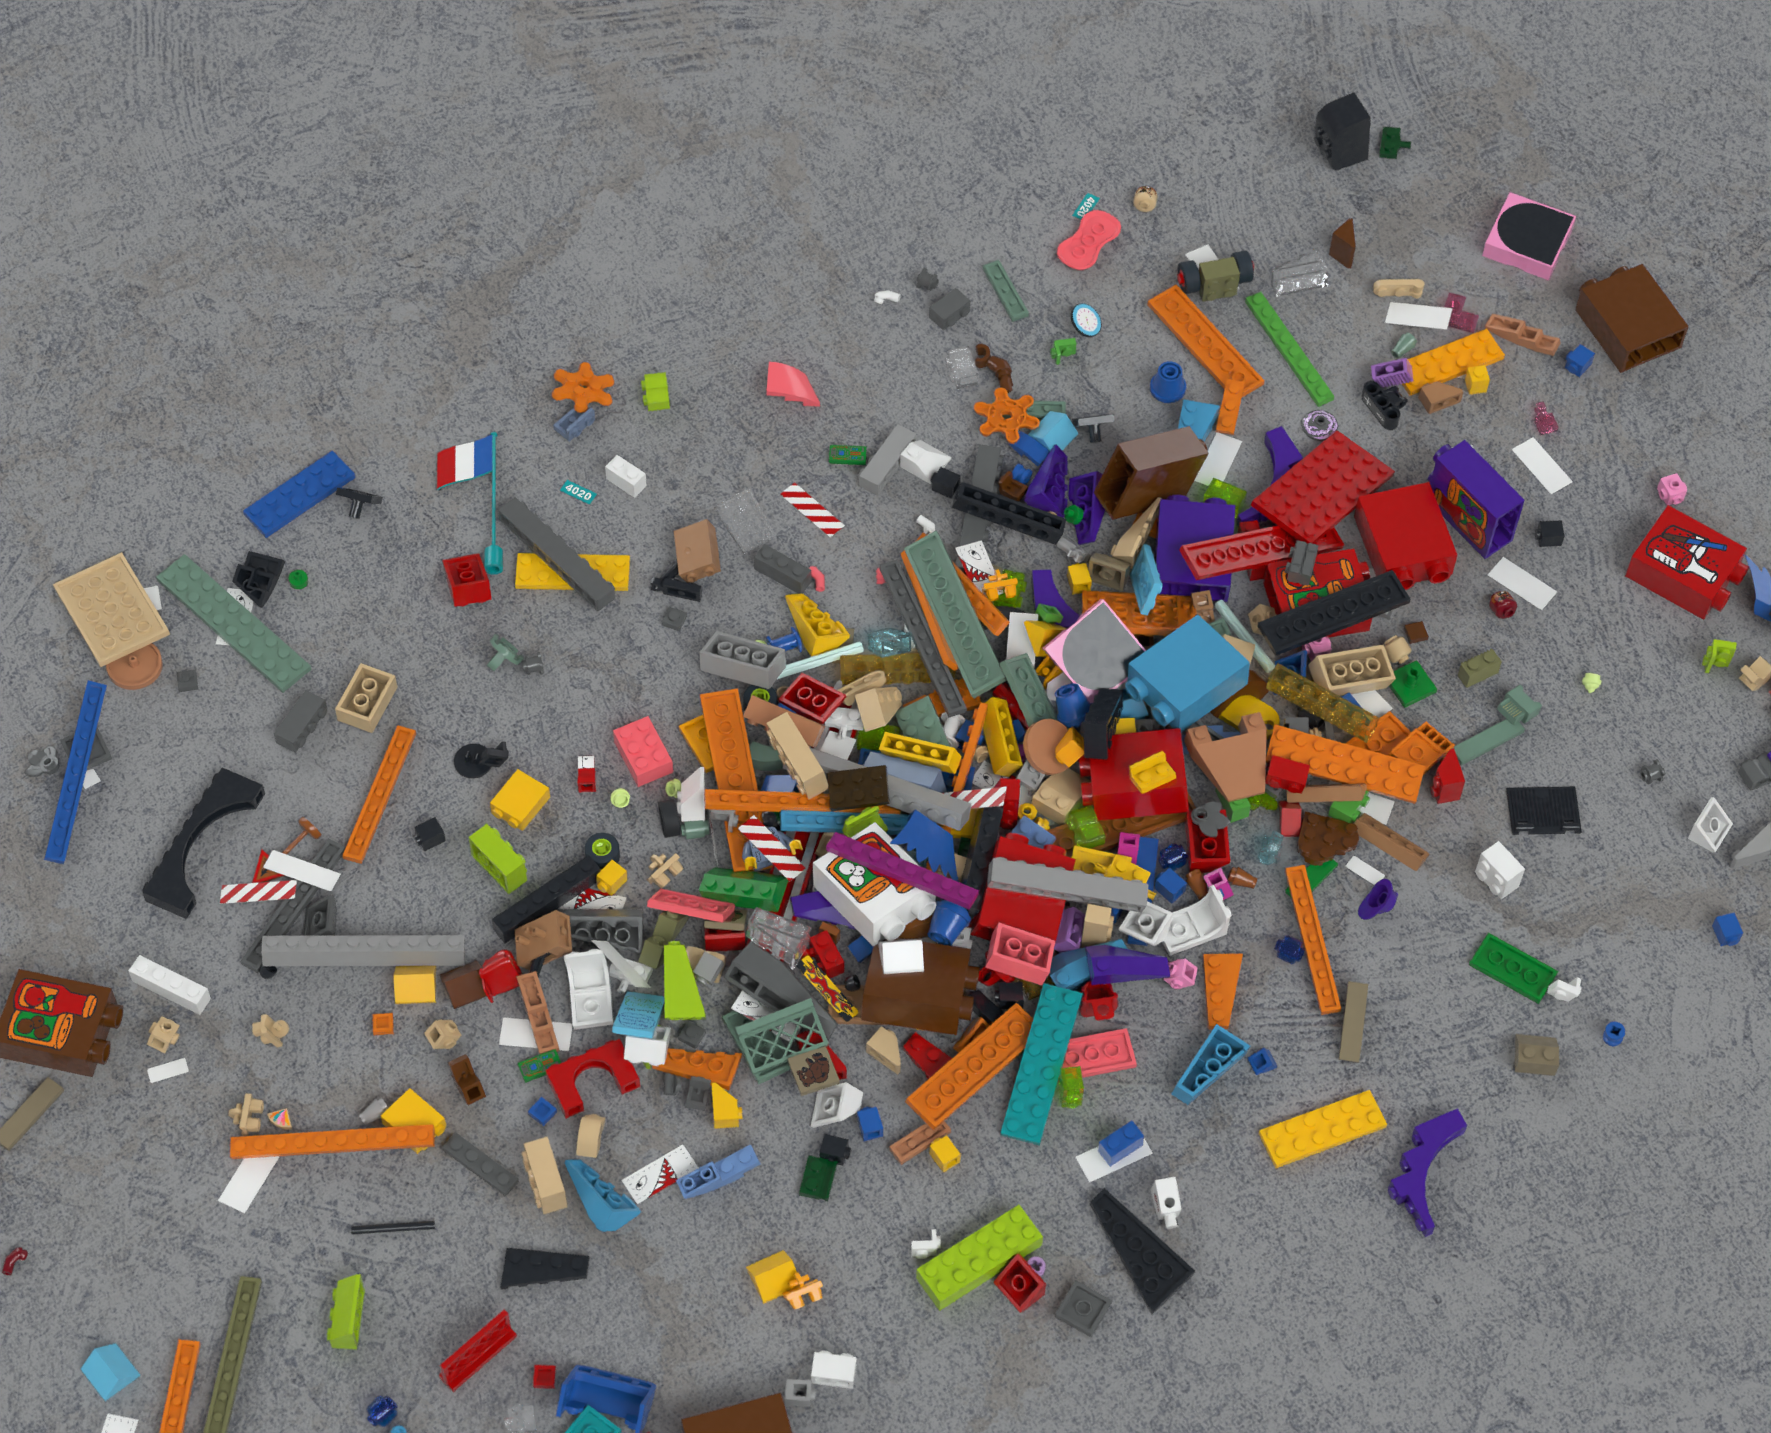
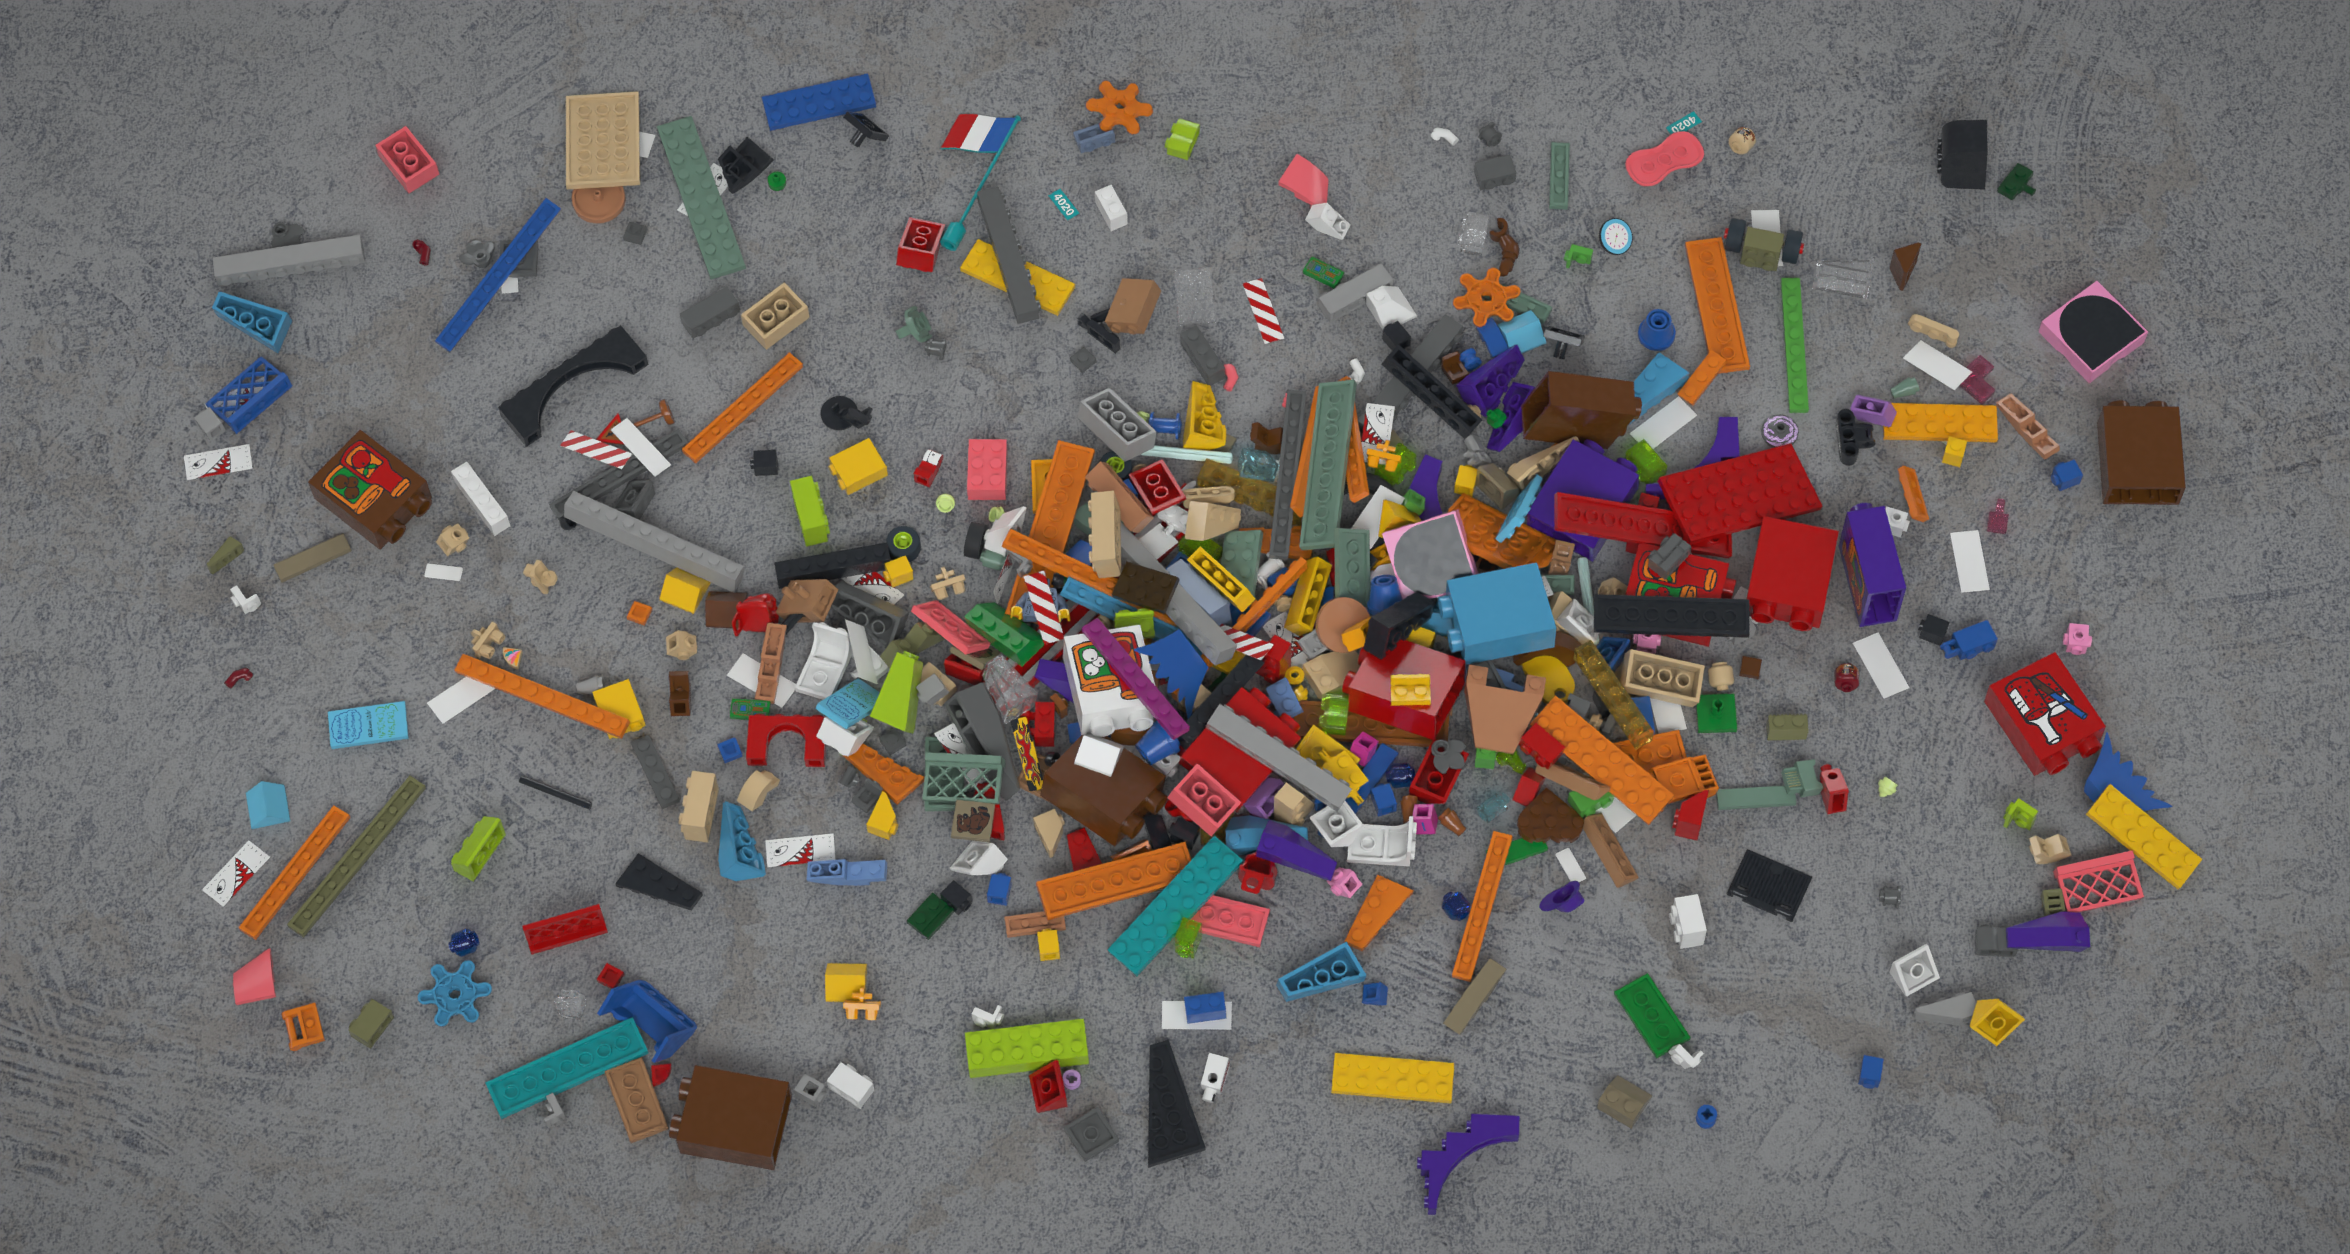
camera: 30 degrees right, 5 degrees up
(170, 1247) = (368, 725): none -> medium azure tile
(826, 408) = (1327, 220): none -> white slope
(884, 617) = (1266, 439): none -> reddish brown brick
(1260, 658) = (1578, 622): none -> white slope
(1439, 396) = (1908, 452): medium nougat slope -> none
(1463, 429) = (1913, 494): none -> orange plate
(1554, 702) = (1834, 789): none -> red torso
(1586, 529) = (1970, 641): none -> blue brick

